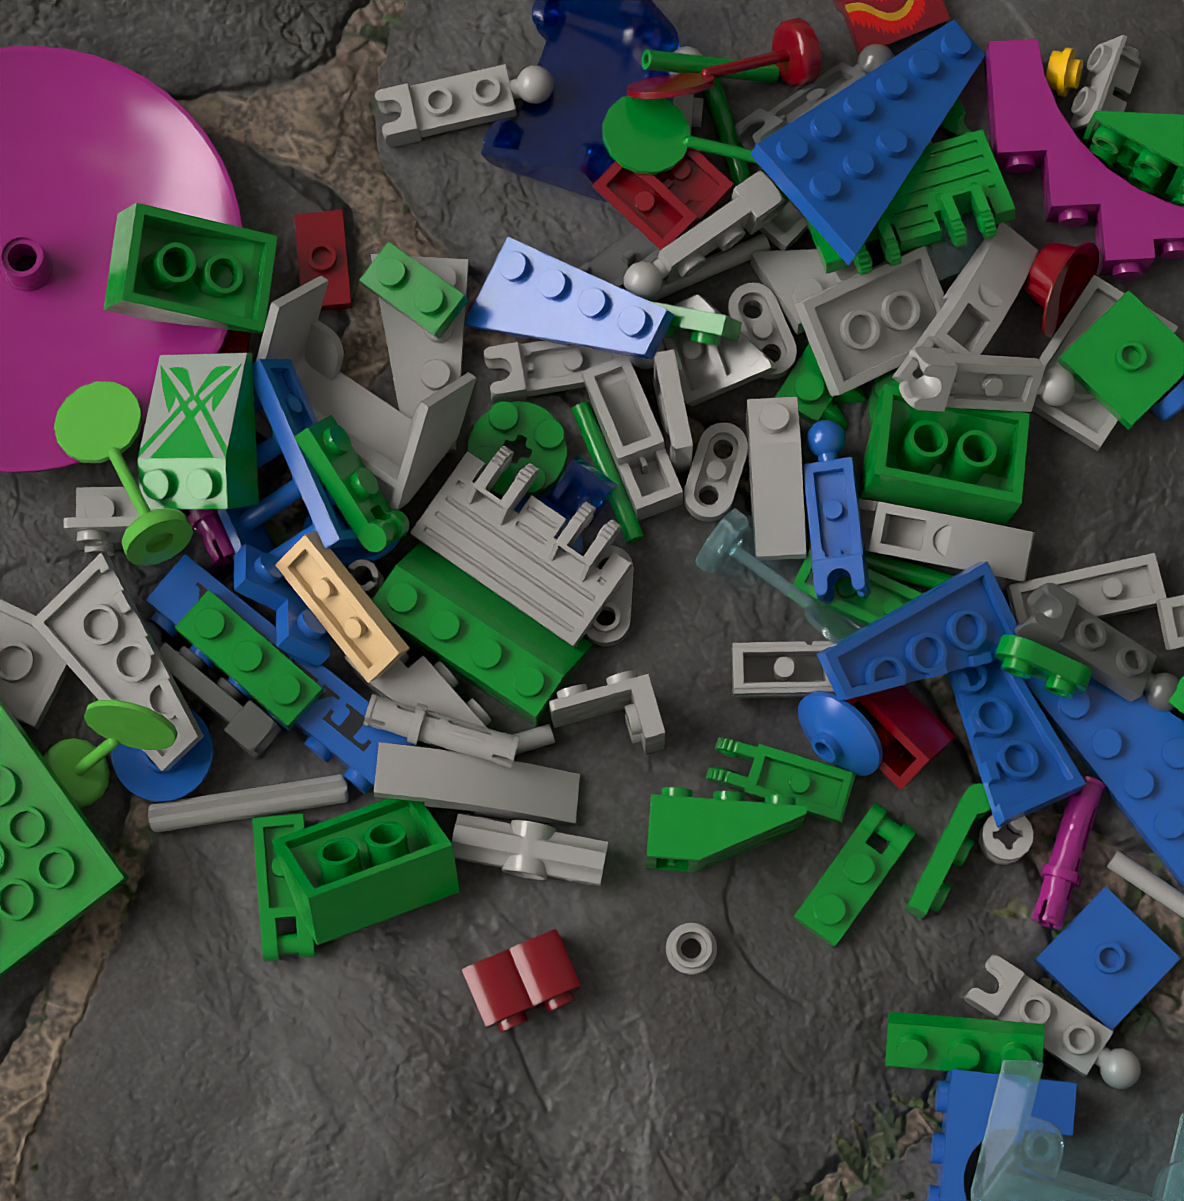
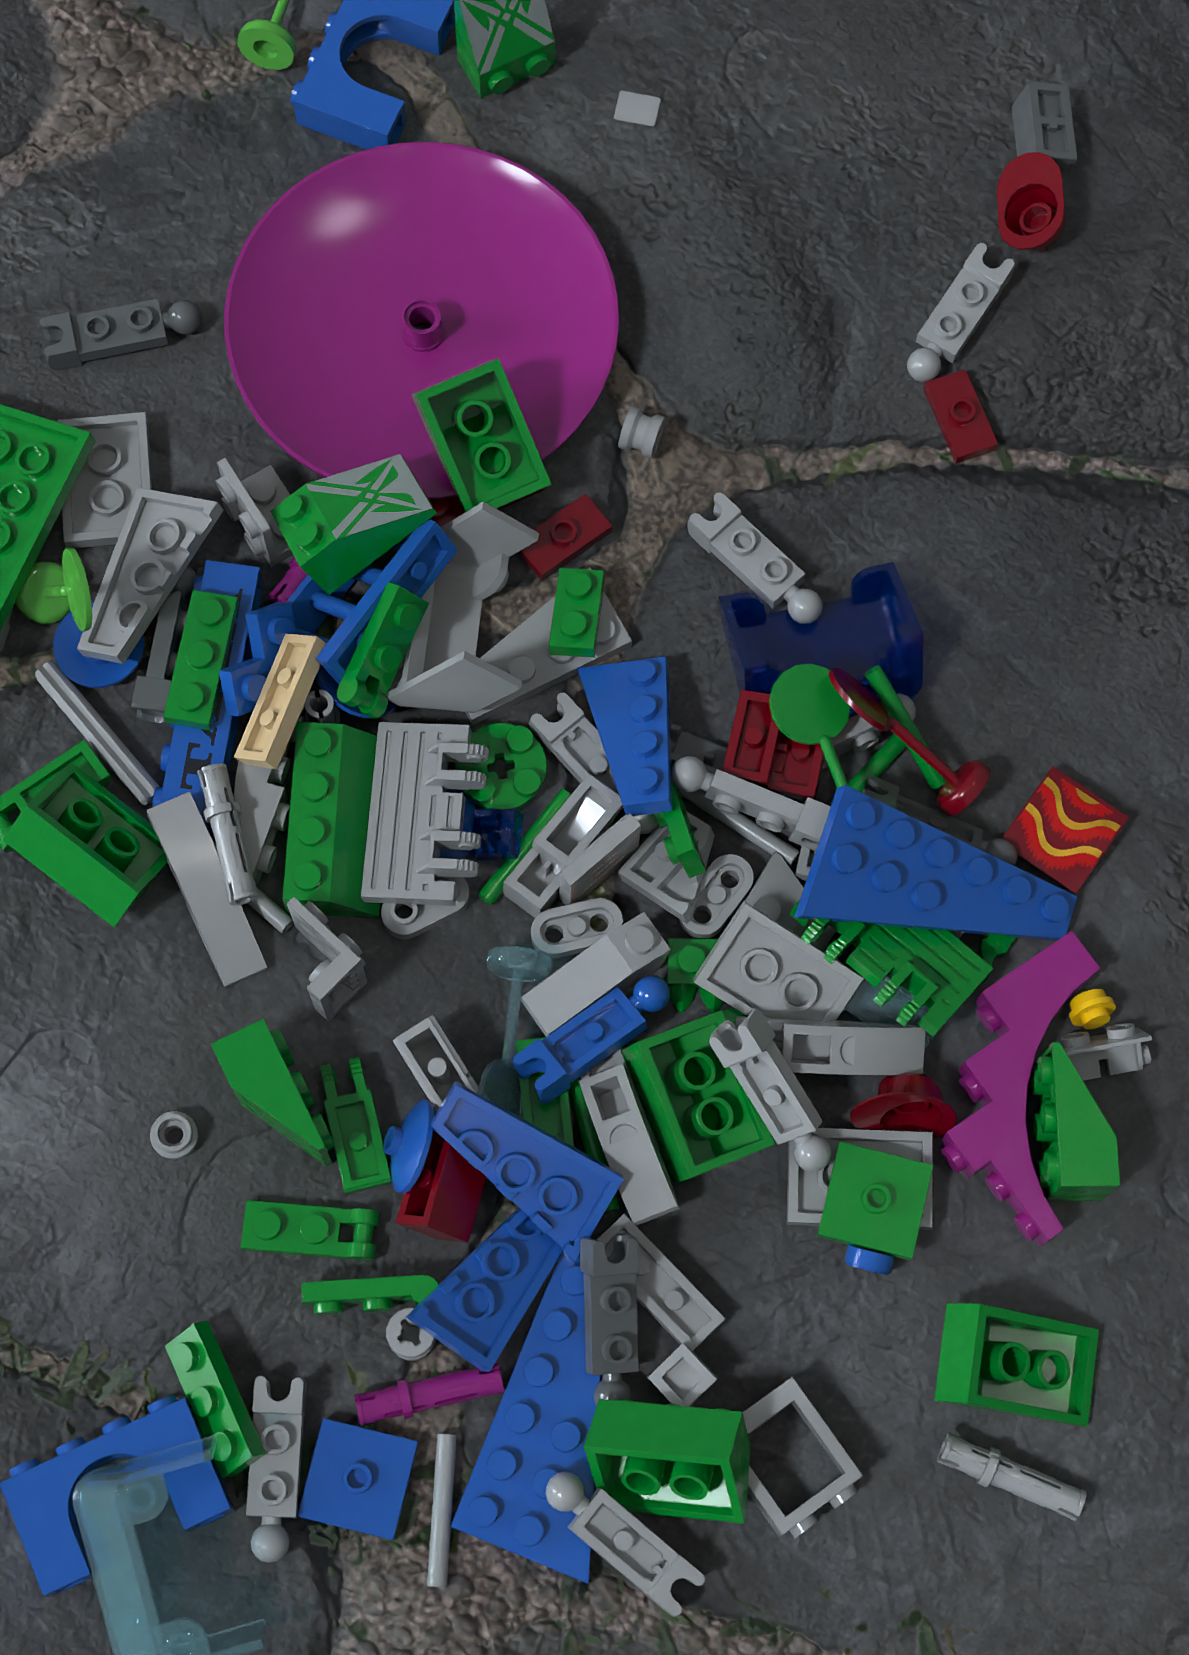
camera: 55 degrees right, 5 degrees down
(98, 427) = (314, 444): bright green piece -> none
(266, 126) = (641, 432): none -> light grey wheel
(521, 980) = (72, 1017): dark red brick -> none
(529, 849) = (180, 962): light grey piece -> none
(1027, 659) = (559, 1255): green plate -> none

